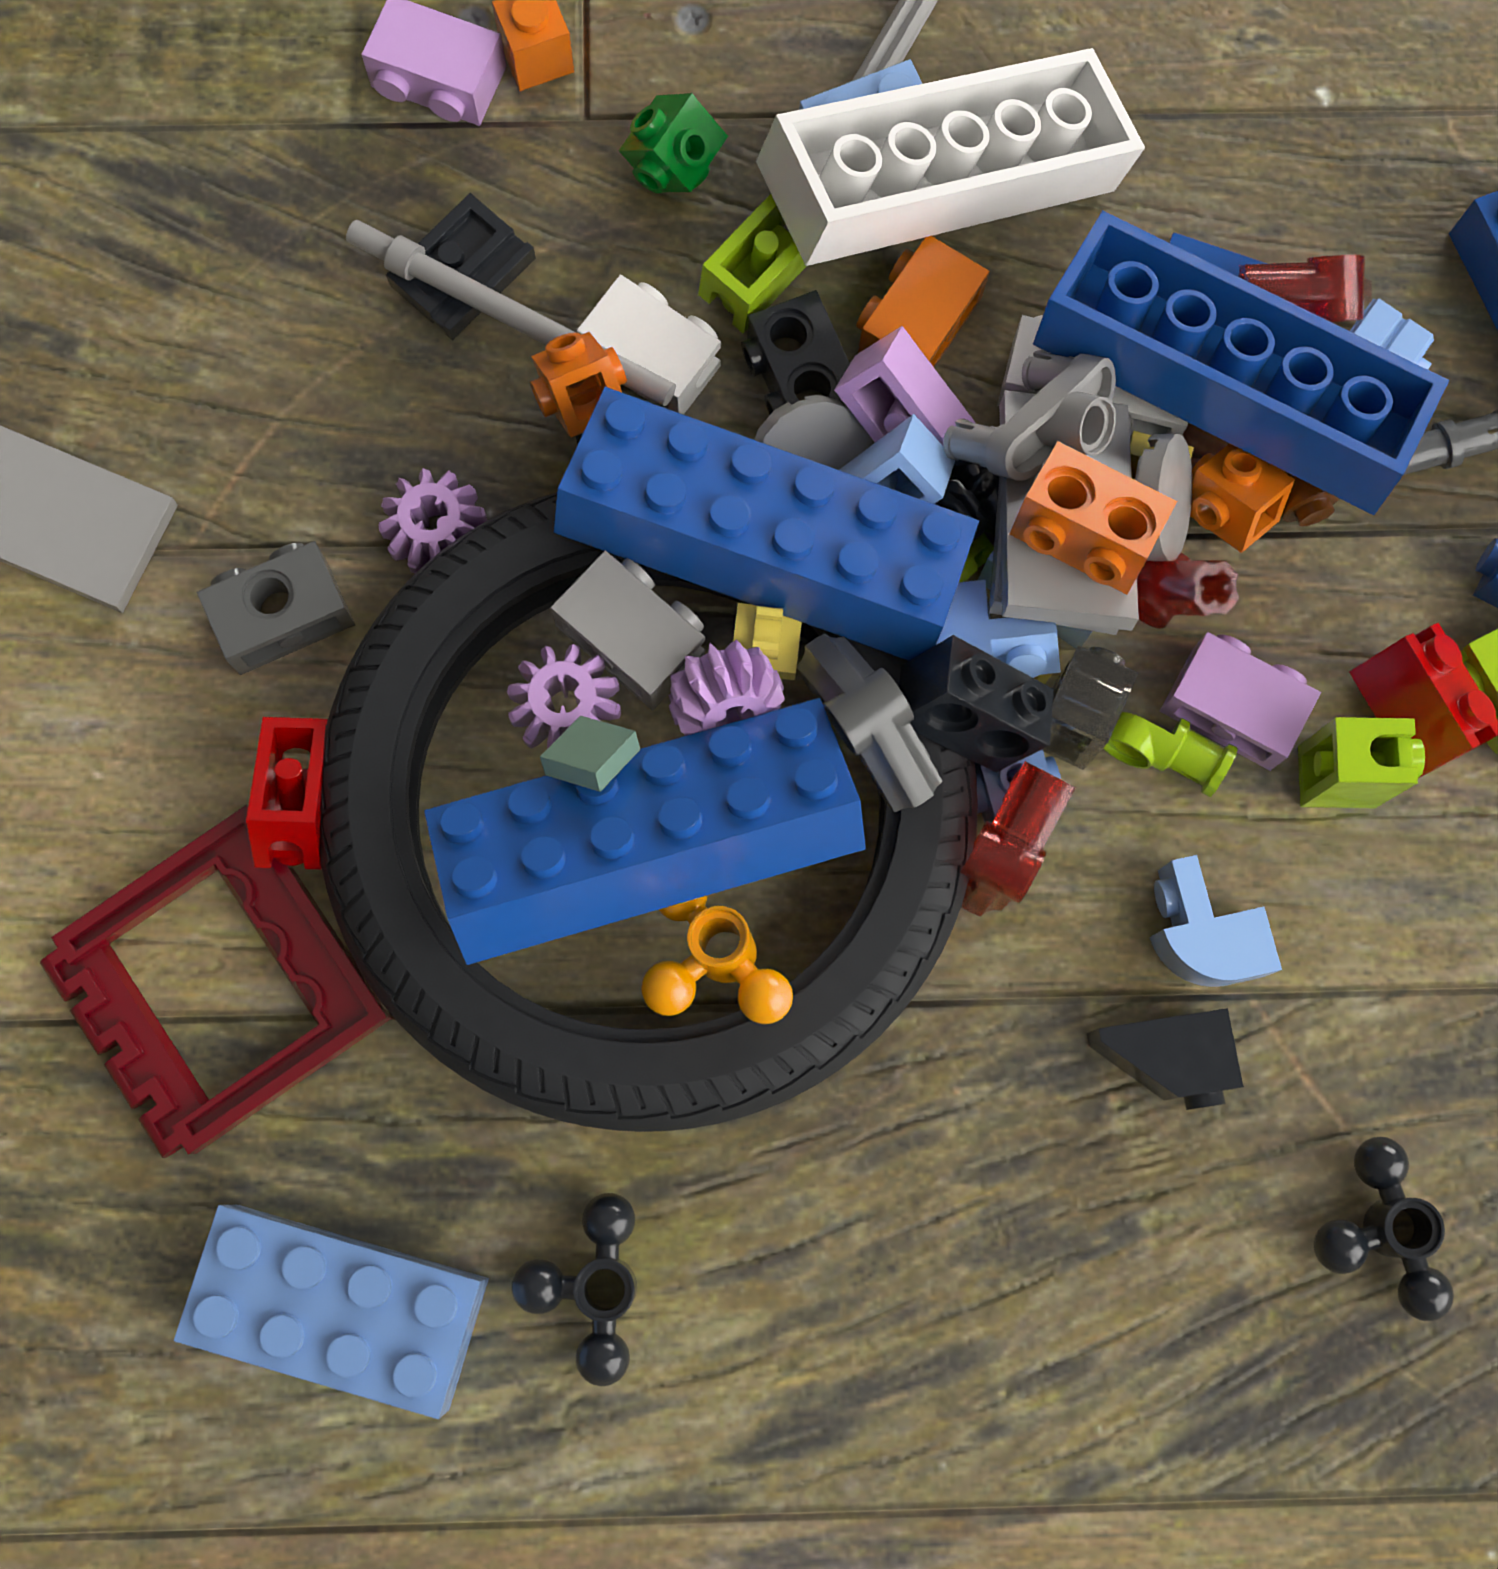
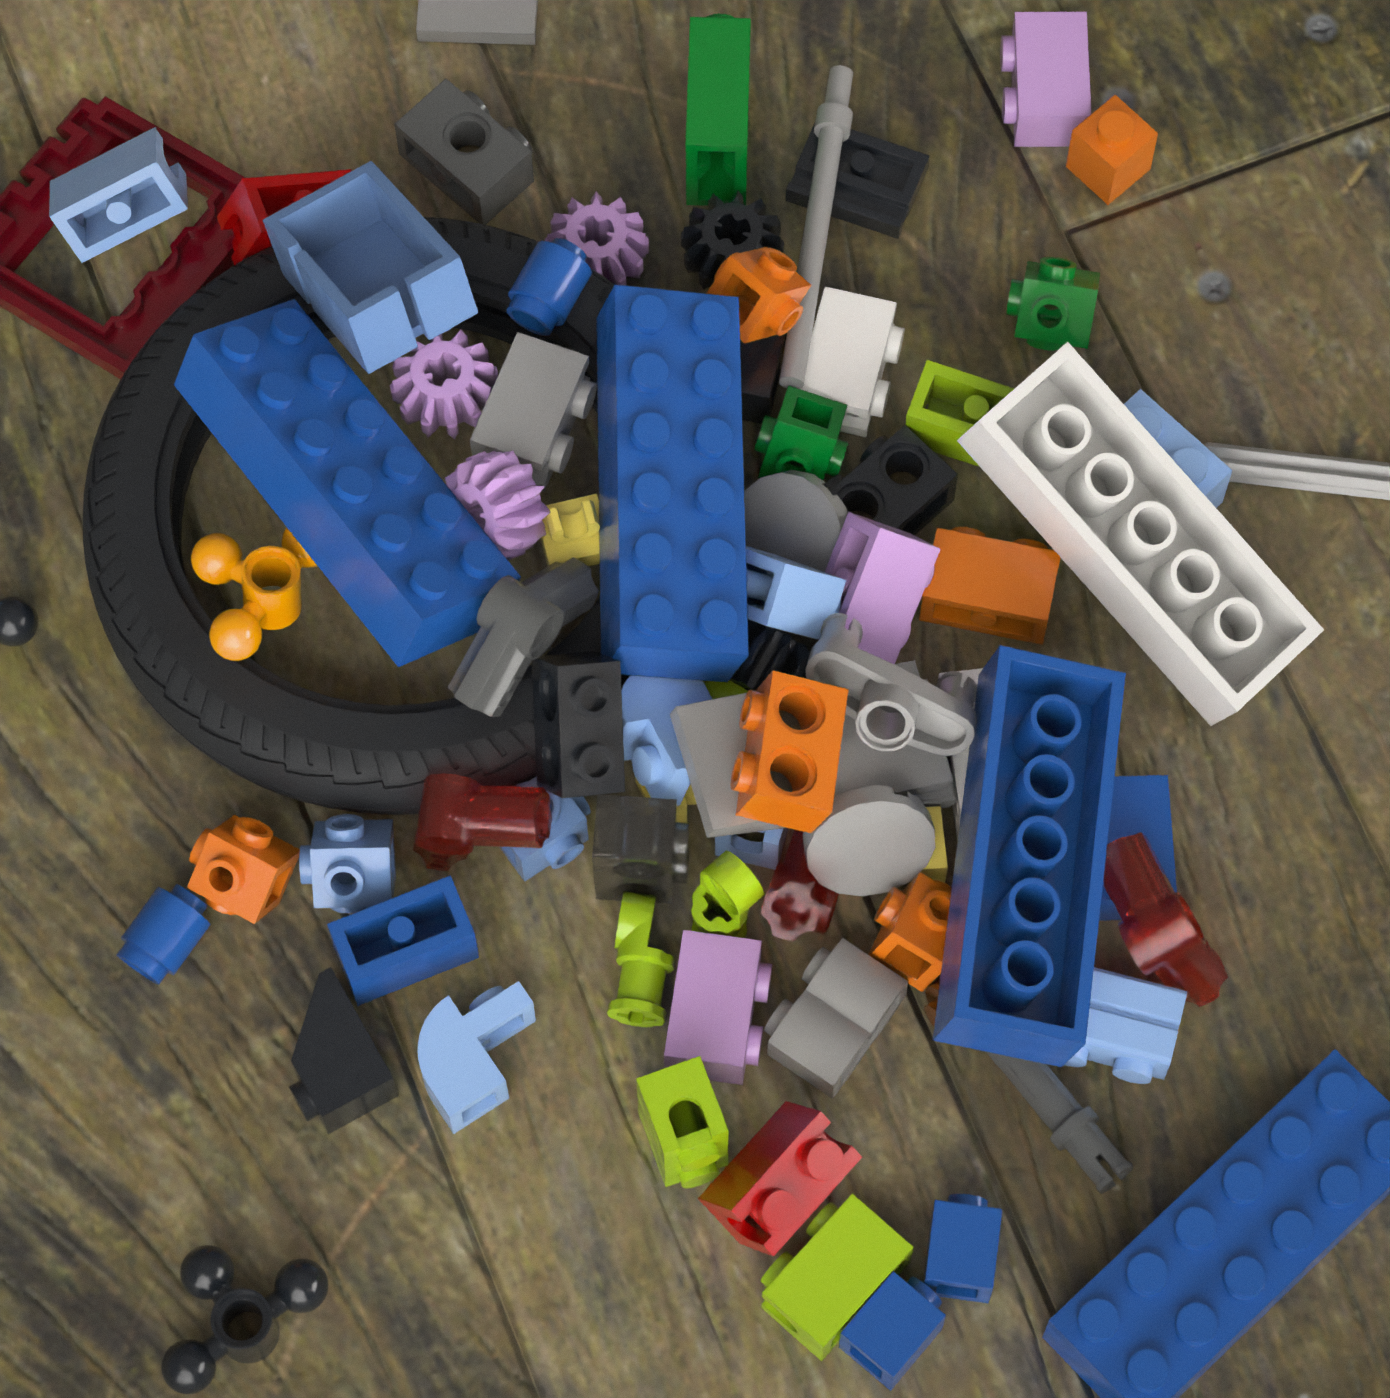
camera: 75 degrees right, 10 degrees down
(185, 959) = (117, 195): none -> light blue brick
(347, 351) = (717, 108): none -> green brick
(425, 719) = (370, 266): none -> medium blue piece
(463, 393) = (724, 231): none -> black gear
(500, 564) = (548, 286): none -> blue brick
(590, 753) = (387, 400): sand green tile -> none
(724, 398) = (803, 436): none -> green brick
(960, 1079) = (242, 868): none -> orange brick
(991, 975) = (349, 863): none -> medium blue brick
(991, 1177) = (164, 933): none -> blue brick
(1090, 952) = (404, 940): none -> blue brick
(1156, 638) = (729, 888): none -> lime connector
(1288, 600) = (835, 1016): none -> light grey brick

